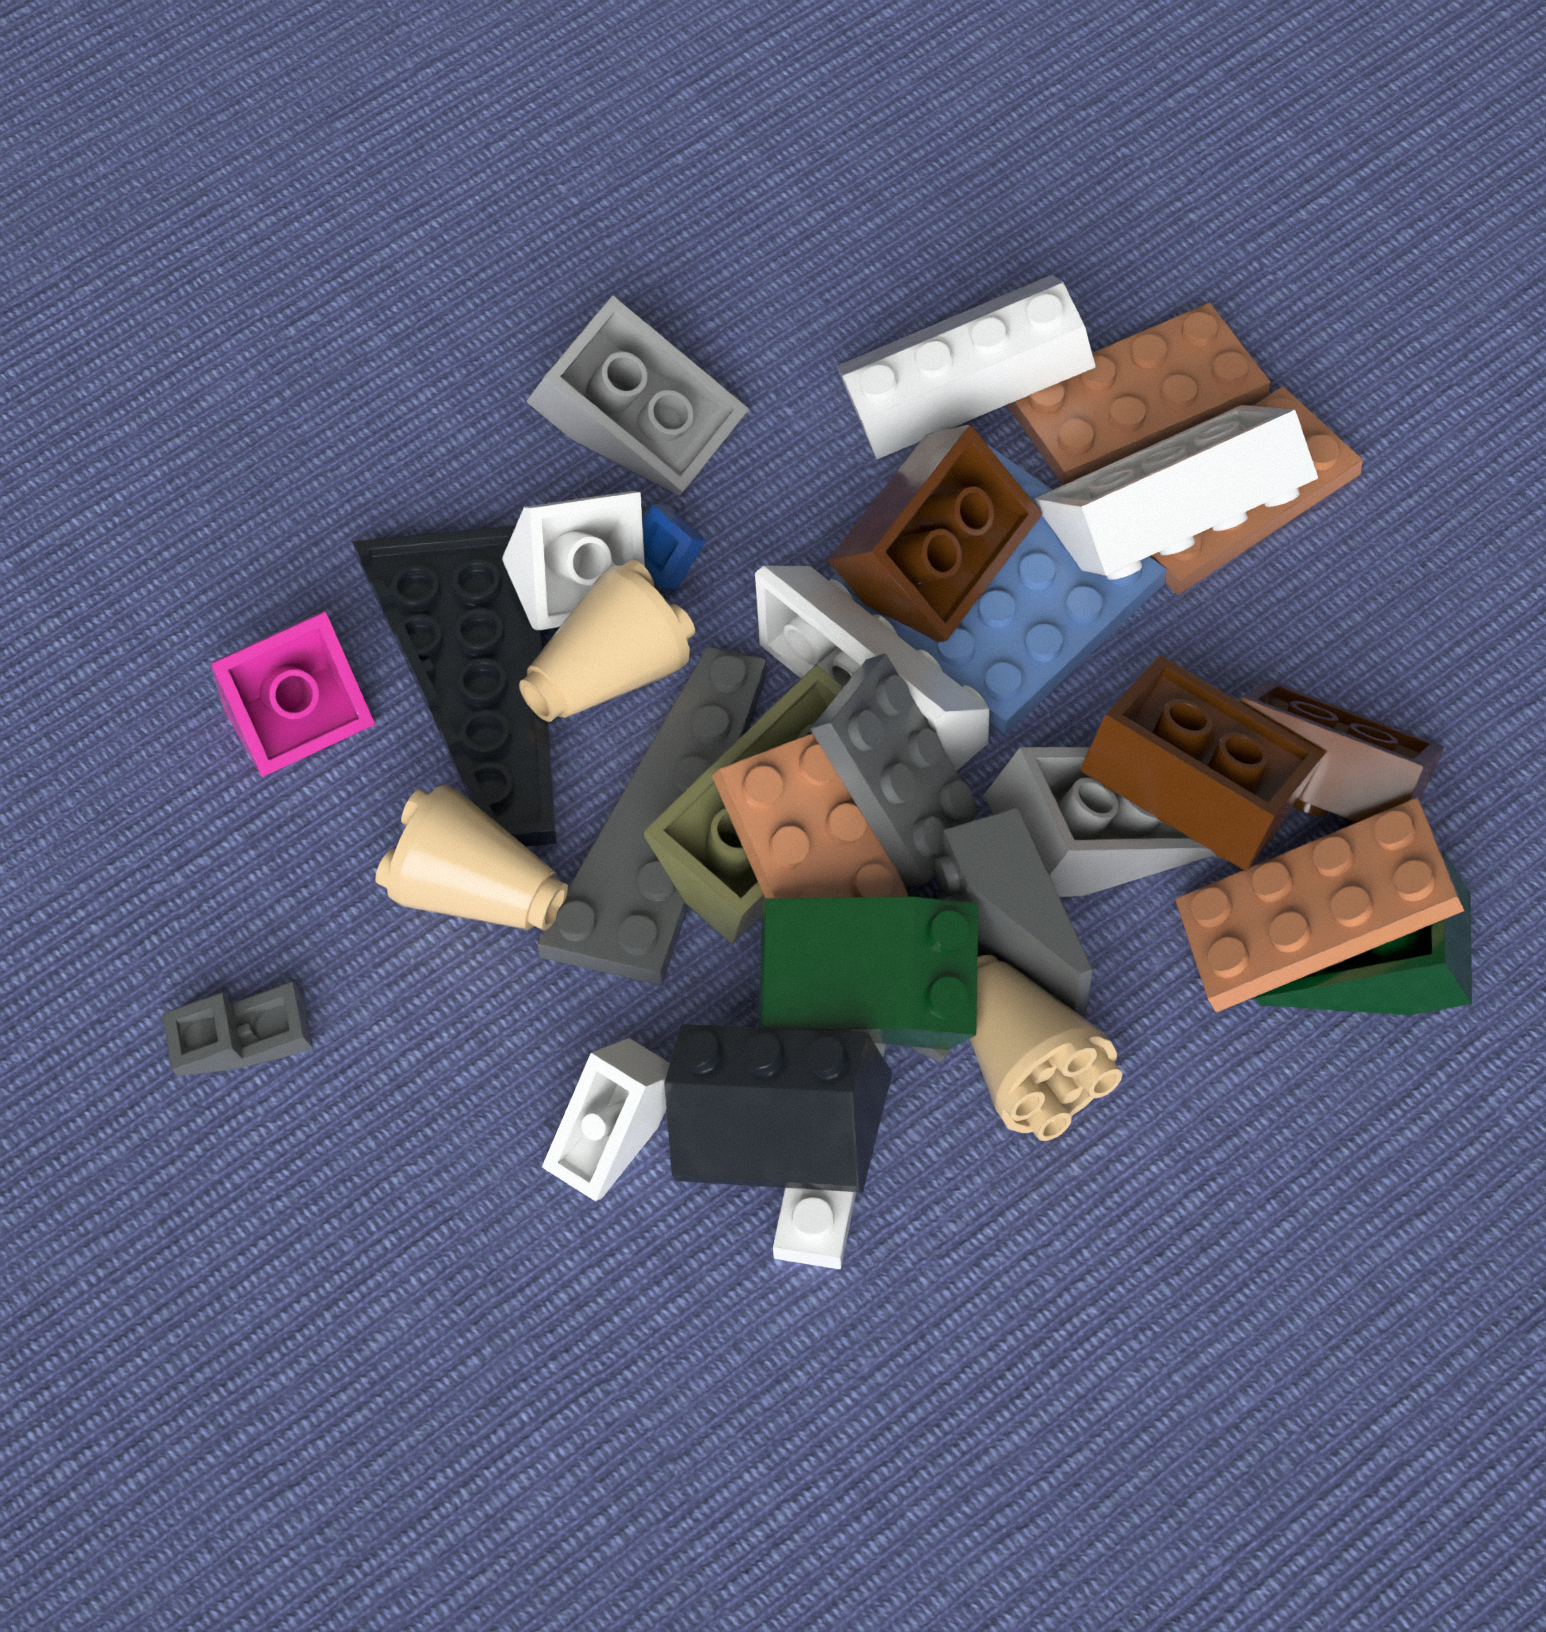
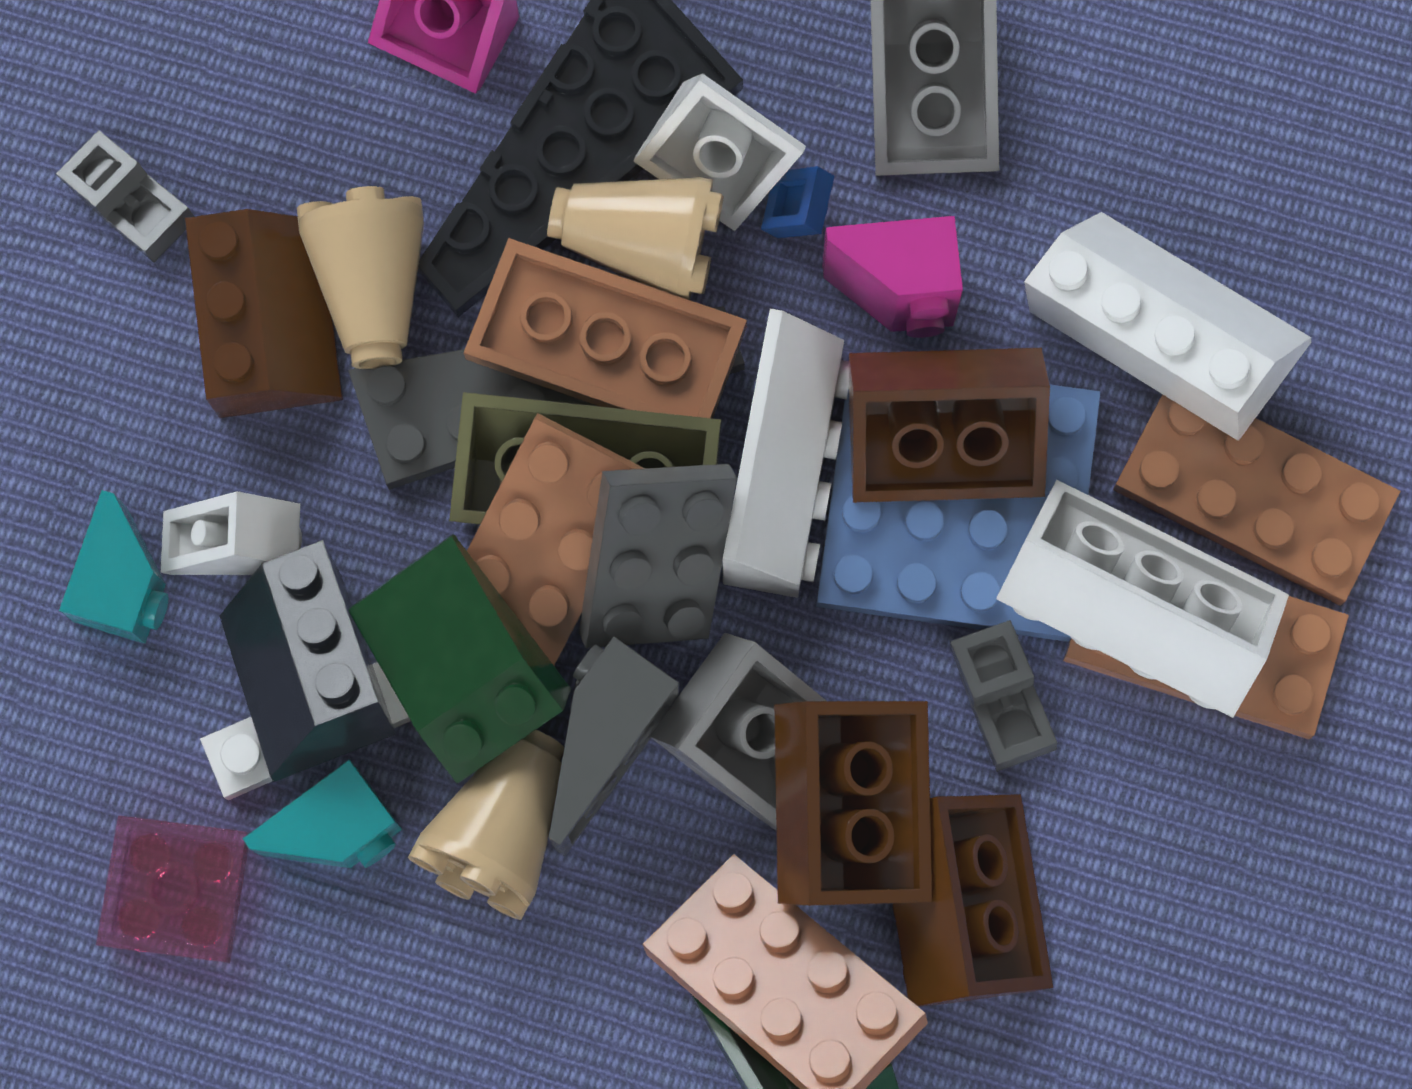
camera: 55 degrees right, 20 degrees up
(430, 984) = (260, 314): none -> reddish brown slope
(576, 1225) = (115, 577): none -> teal slope
(664, 727) = (603, 336): none -> nougat plate
(785, 499) = (898, 272): none -> dark pink slope
(894, 1347) = (173, 889): none -> clear pink plate
(931, 1181) = (330, 824): none -> teal slope
(1202, 647) = (1003, 695): none -> dark grey slope

